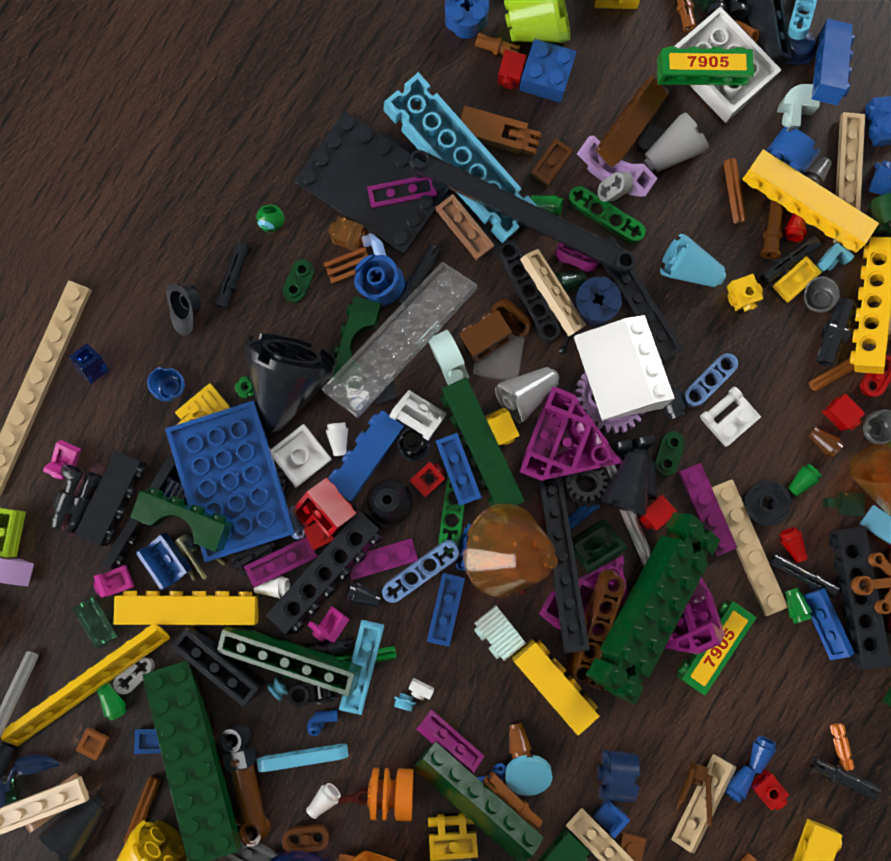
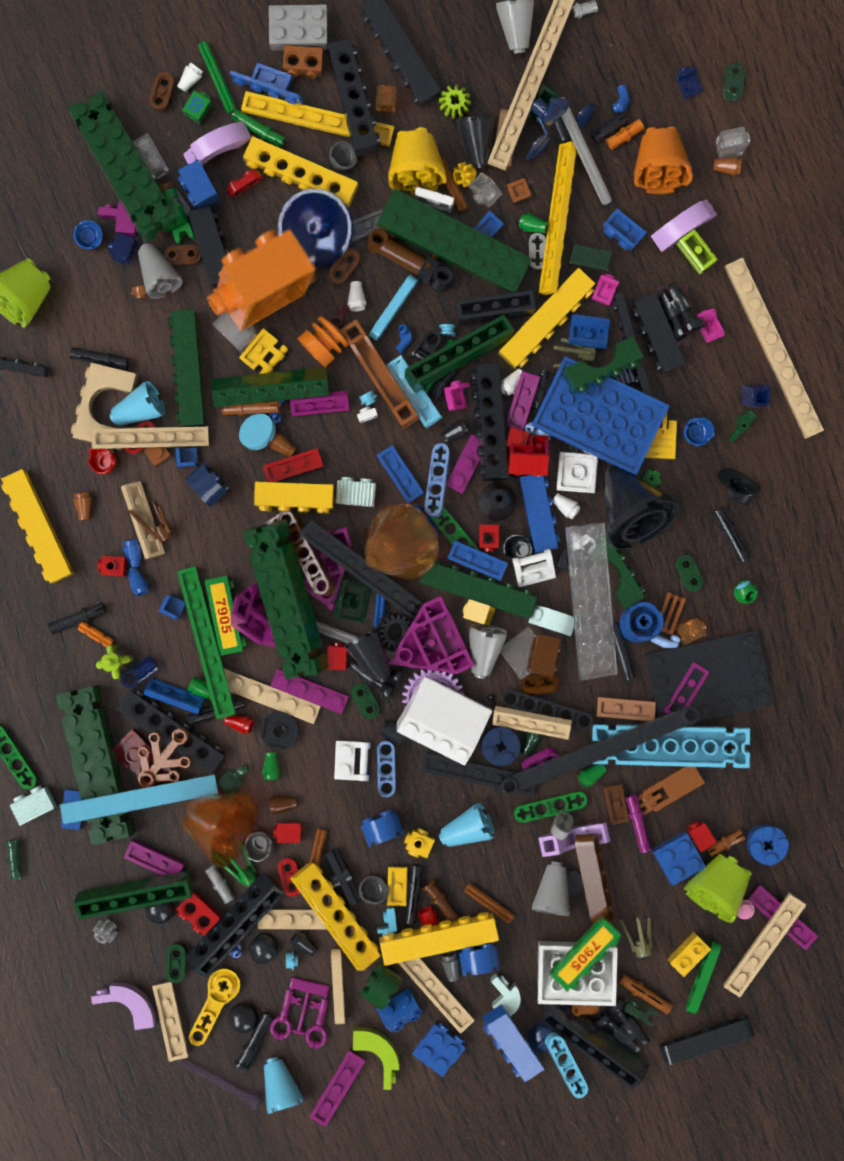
camera: 135 degrees right, 5 degrees up
(44, 615) = (623, 230): none -> blue bracket
(118, 776) = (484, 190): none -> clear brick
(121, 808) = (464, 174): none -> yellow gear
(125, 352) = (743, 424): none -> dark green piece
(165, 814) = (435, 199): none -> white plate
(374, 714) = (379, 374): none -> dark orange arch
(528, 712) = (293, 466): none -> red plate
(546, 136) = (638, 823): none -> magenta pin
(646, 36) = (643, 945): none -> olive plant
(753, 701) = (172, 606): none -> blue panel
(756, 640) = (206, 643): none -> green plate
(764, 335) = (381, 828): none -> blue brick
(837, 675) = (140, 671): none -> clear blue piece
(854, 708) = (113, 661): none -> lime plant

